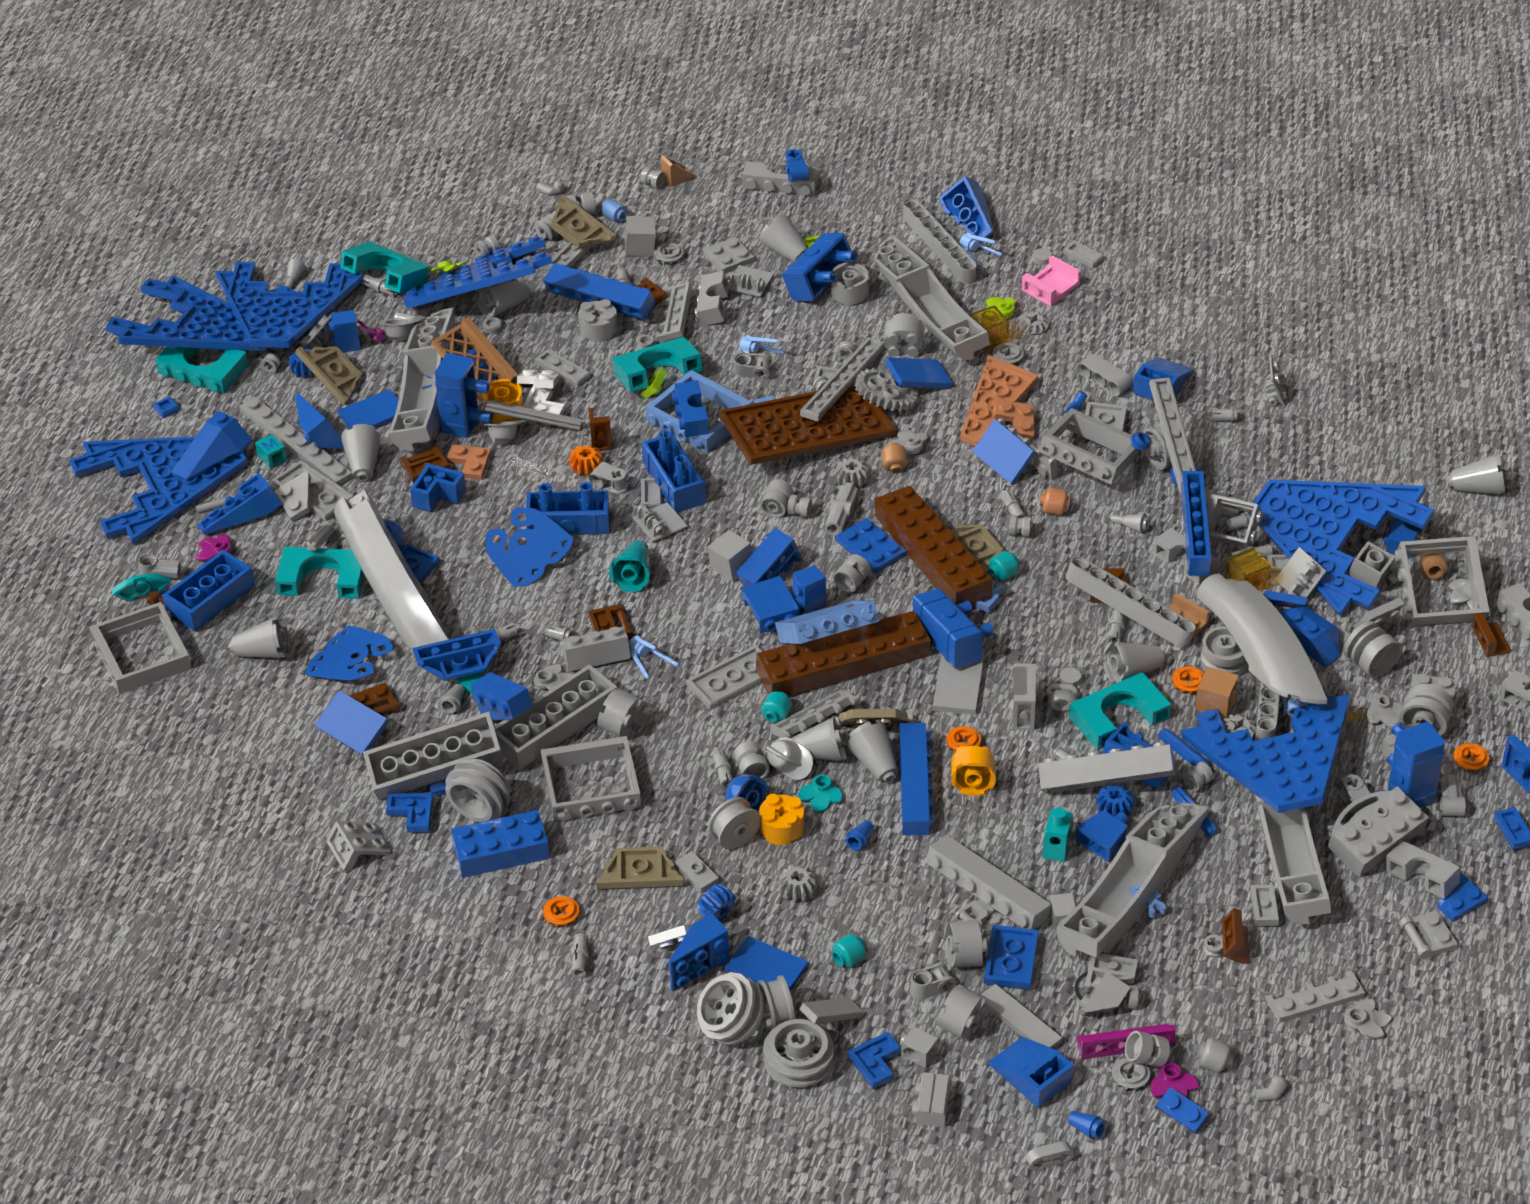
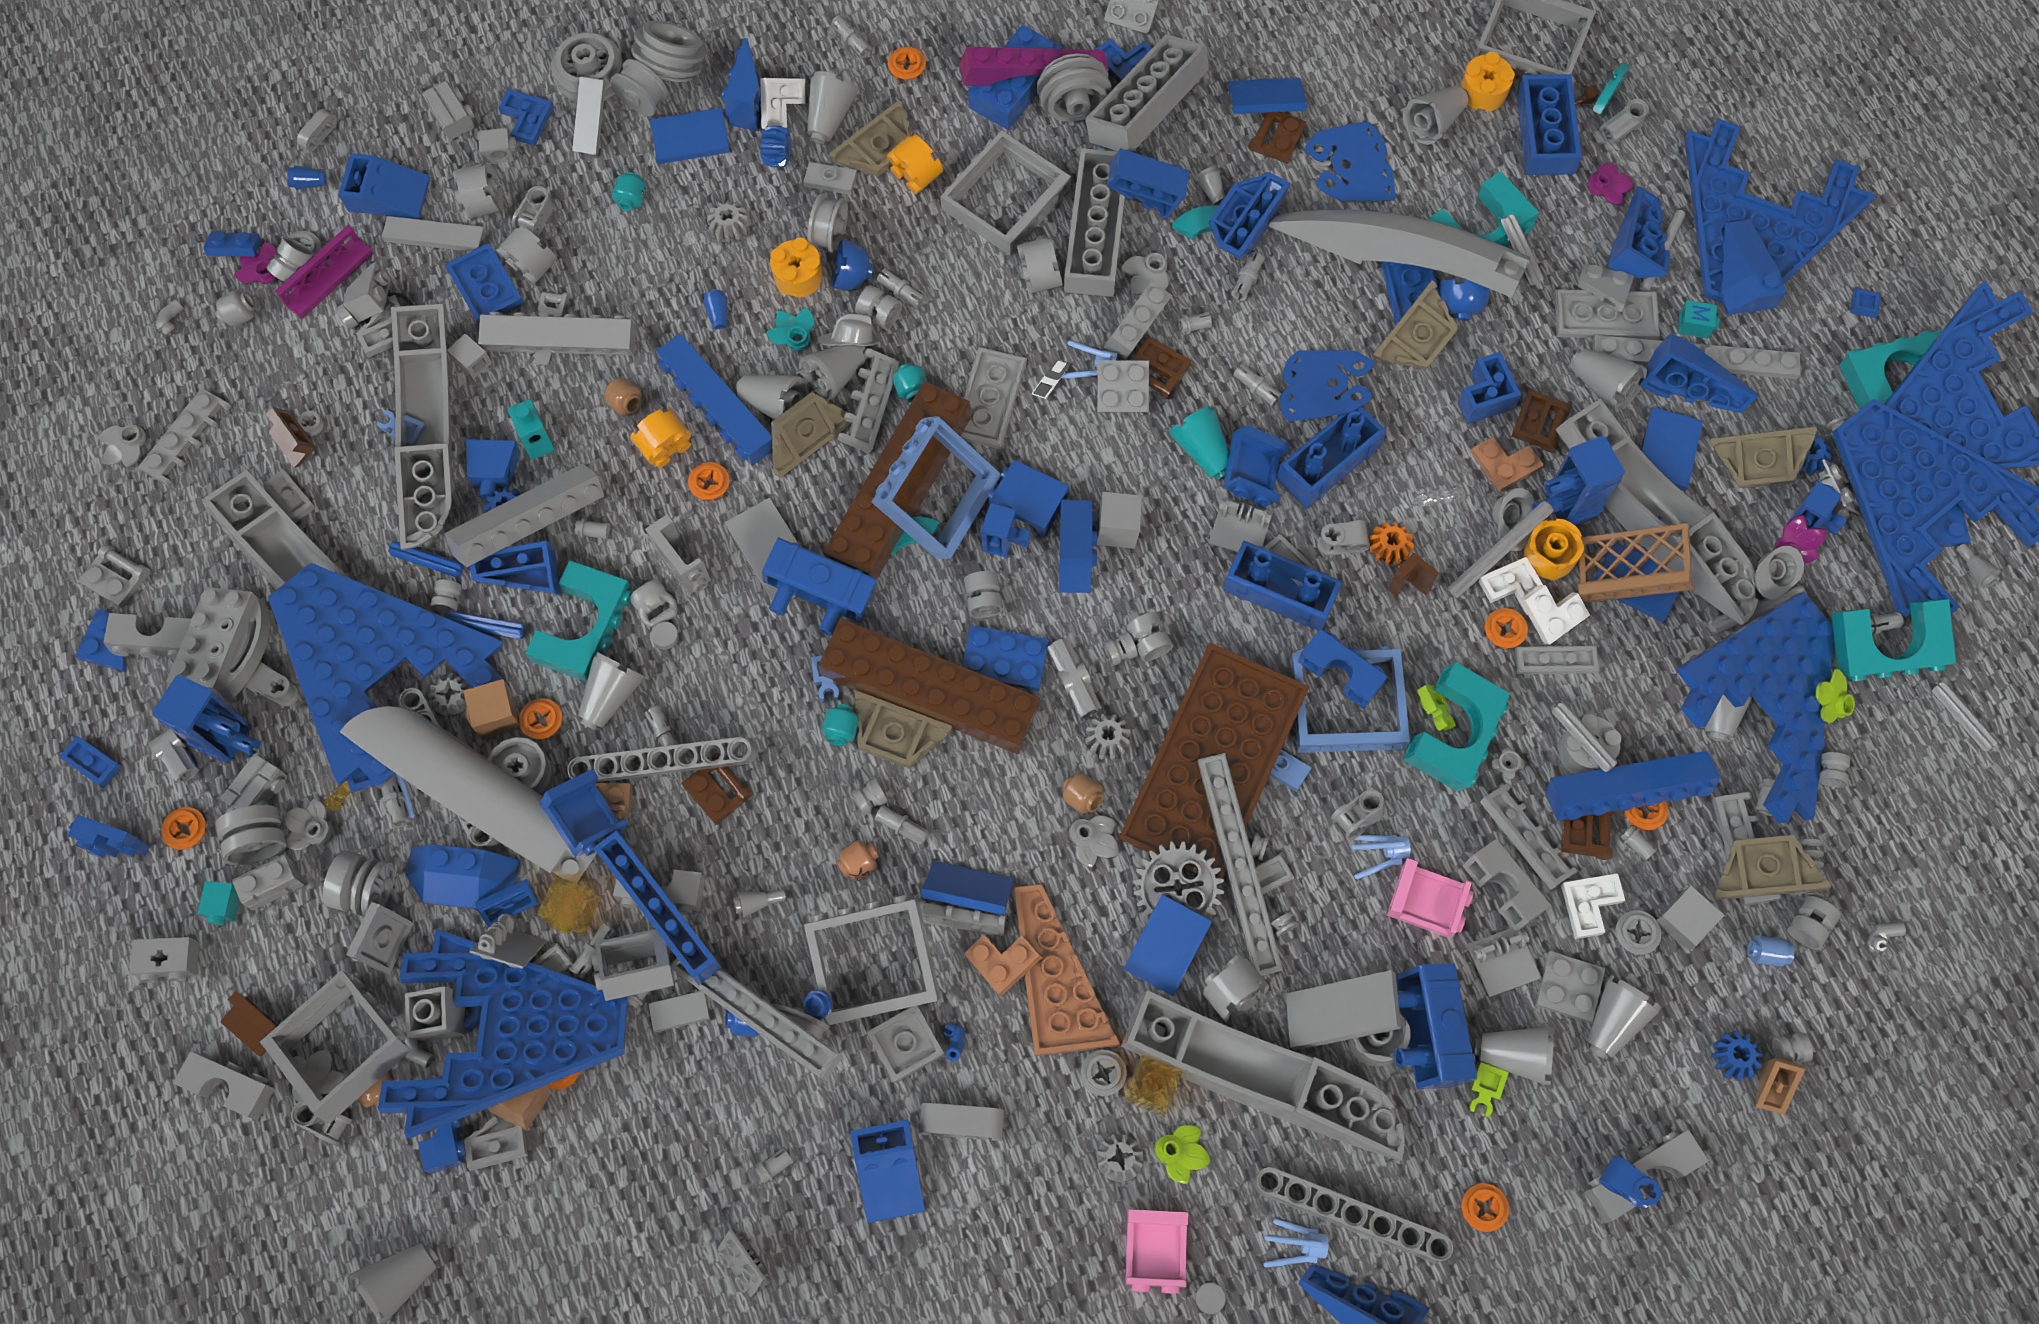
camera: 140 degrees right, 25 degrees up
(208, 638) = (1487, 81): none -> light orange brick
(391, 231) = (1964, 716): none -> light grey axle
(436, 540) = (1419, 333): none -> dark tan wing
(522, 827) = (990, 64): none -> magenta arch
(562, 580) = (1257, 385): none -> light grey pin
(579, 390) = (1502, 617): none -> orange gear
(602, 309) = (1584, 736): none -> light grey axle
(634, 528) = (1254, 465): none -> blue panel
(634, 826) = (914, 162): none -> light orange brick
(646, 623) = (1122, 386): none -> light grey plate
(649, 907) = (828, 104): none -> light grey cone
(673, 276) = (1584, 899): none -> white plate
(682, 189) = (1743, 1066): none -> blue gear
(683, 662) = (1050, 379): none -> sticker
(720, 226) = (1619, 1017): none -> light grey cone
(757, 318) = (1430, 900): none -> bright pink panel
(859, 291) = (1343, 1010): none -> light grey tile
(877, 212) = (1498, 1206): none -> orange gear
(976, 818) = (623, 396): none -> medium nougat head
(1203, 586) = (581, 813): none -> blue panel
(1471, 701) = (218, 903): none -> teal brick

